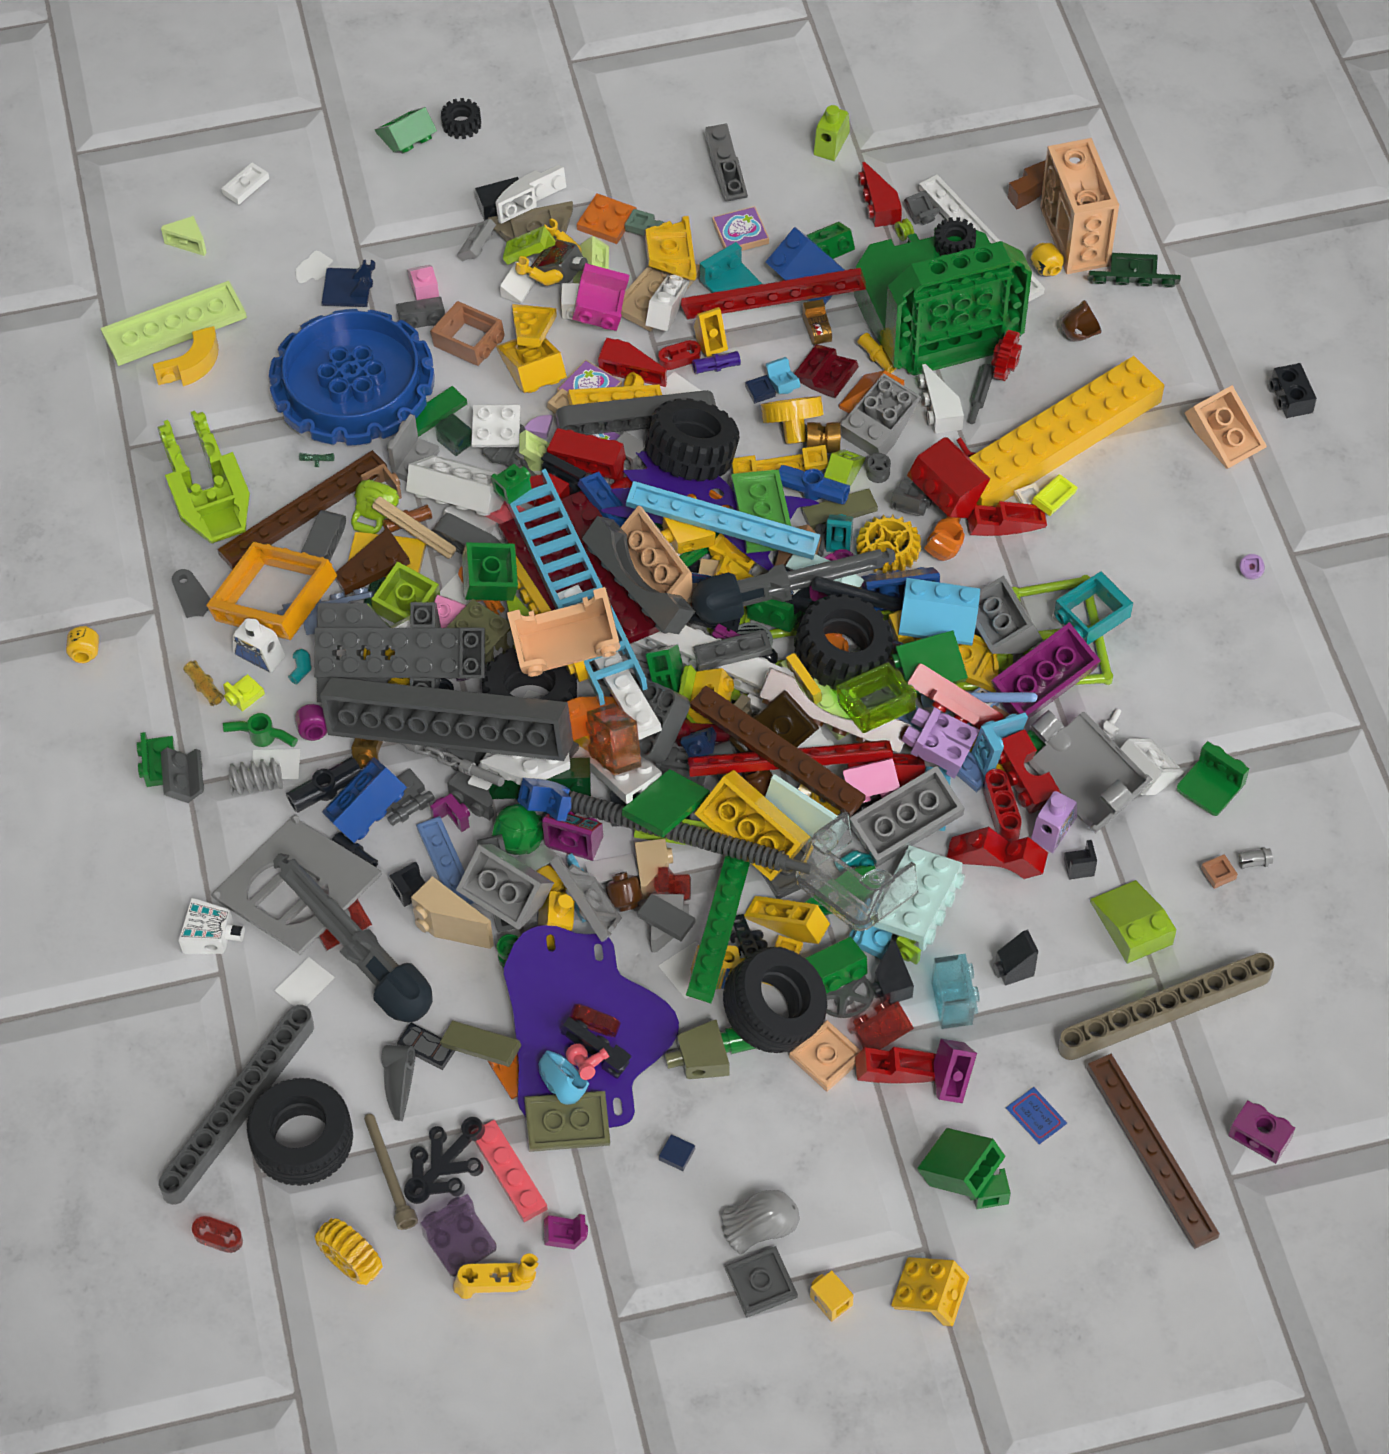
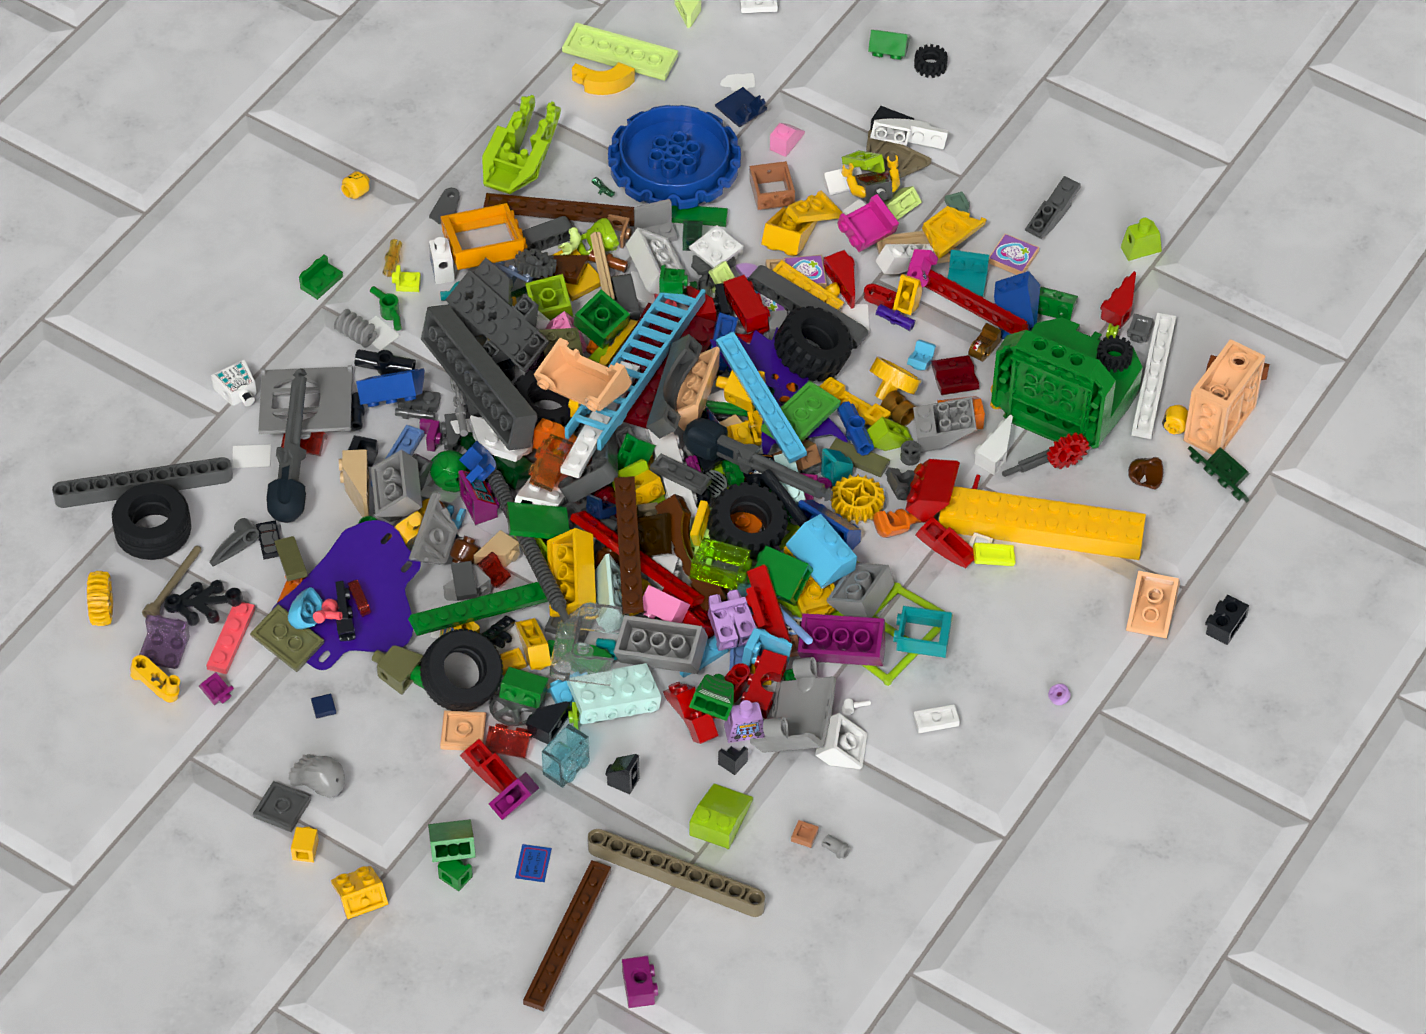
camera: 45 degrees right, 5 degrees down
(182, 774) = (320, 294): dark grey bracket -> none
(218, 1228) = (59, 536): clear red beam -> none
(311, 722) = (415, 324): magenta head -> none
(359, 527) = (575, 239): none -> yellowish green piece
(360, 572) = (535, 263): none -> dark grey gear
(364, 750) = (428, 362): pearl gold bracket -> none
(421, 312) = (762, 152): dark grey bracket -> none
(473, 245) = (854, 136): light grey plate -> none
(605, 218) = (941, 183): orange plate -> none
(694, 296) = (921, 264): none -> dark pink leg
(760, 389) = (901, 353): dark blue tile -> none
(1018, 818) = (714, 696): none -> green torso
(1189, 675) = (936, 718): none -> white plate
(1213, 779) = (868, 785): green bracket -> none

